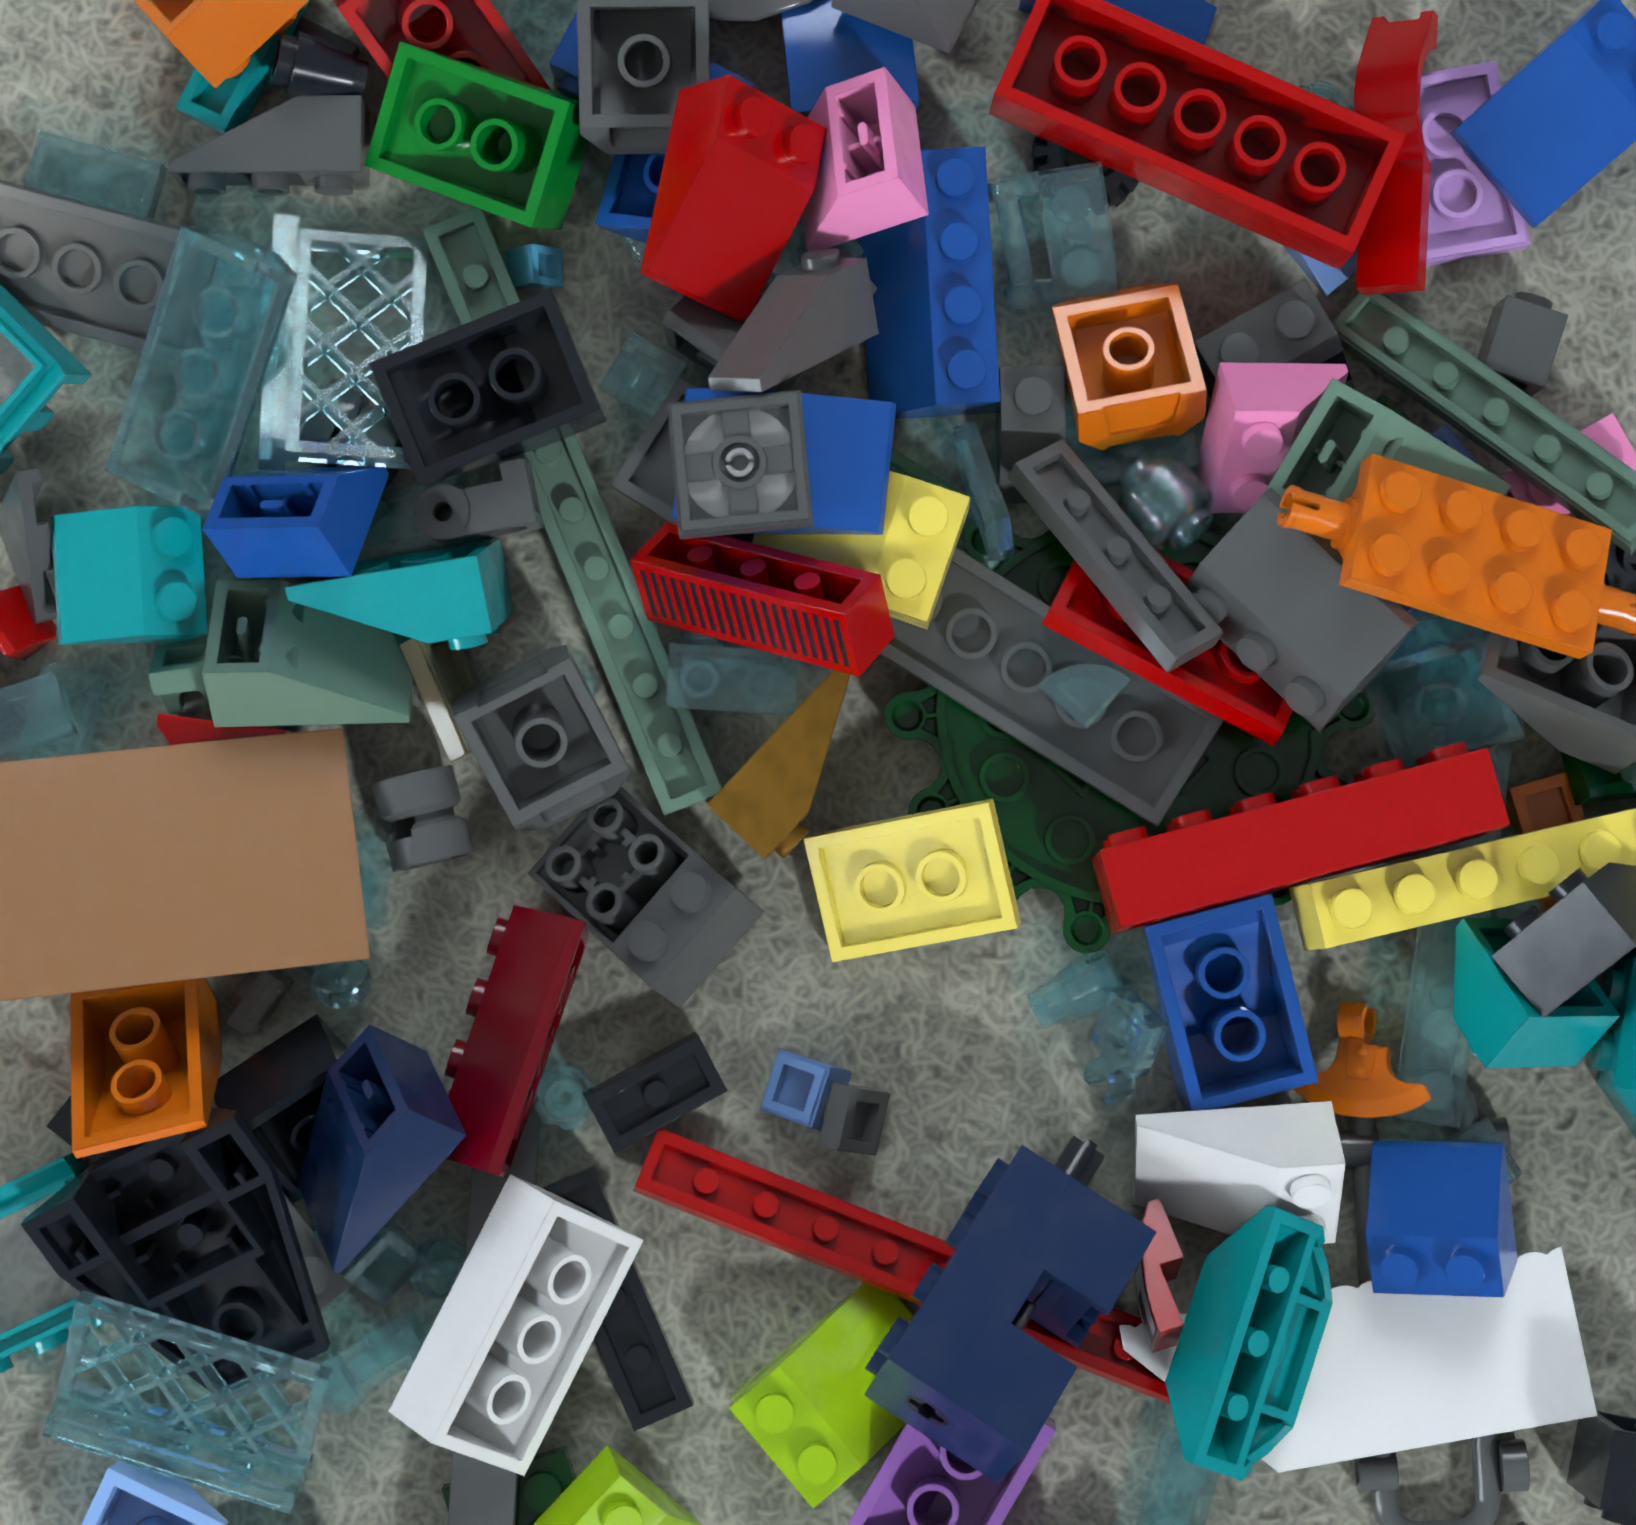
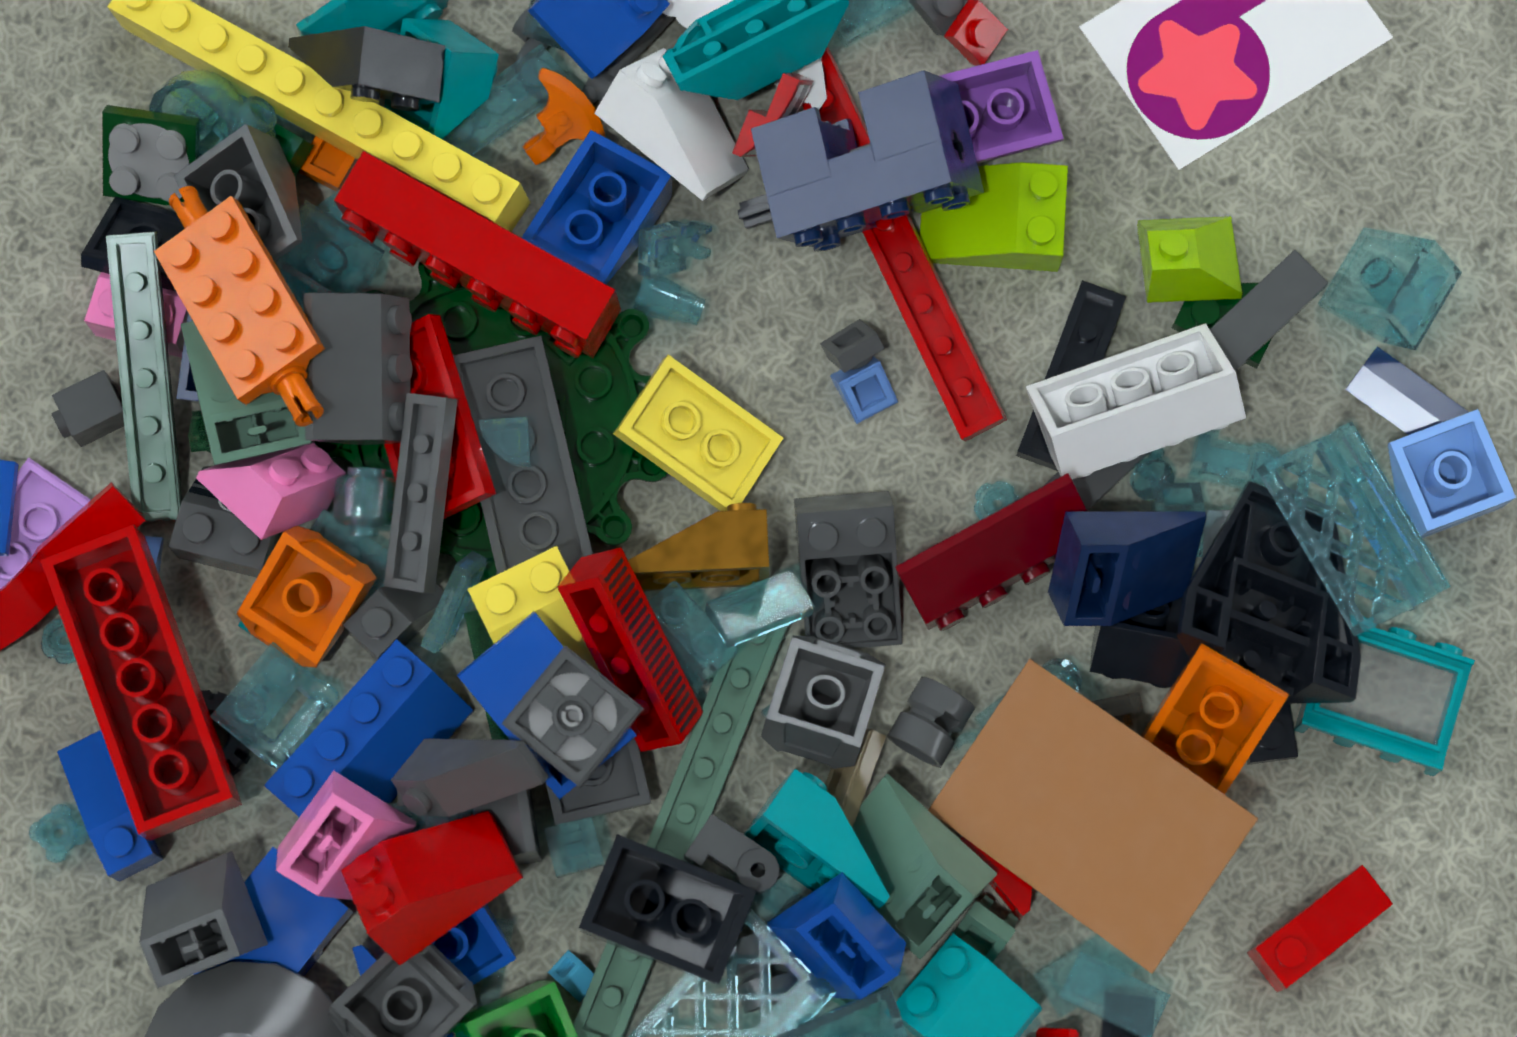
camera: 130 degrees left, 10 degrees down
(655, 1092) = (945, 459): black plate -> none
(686, 765) = (759, 608): none -> clear light blue tile

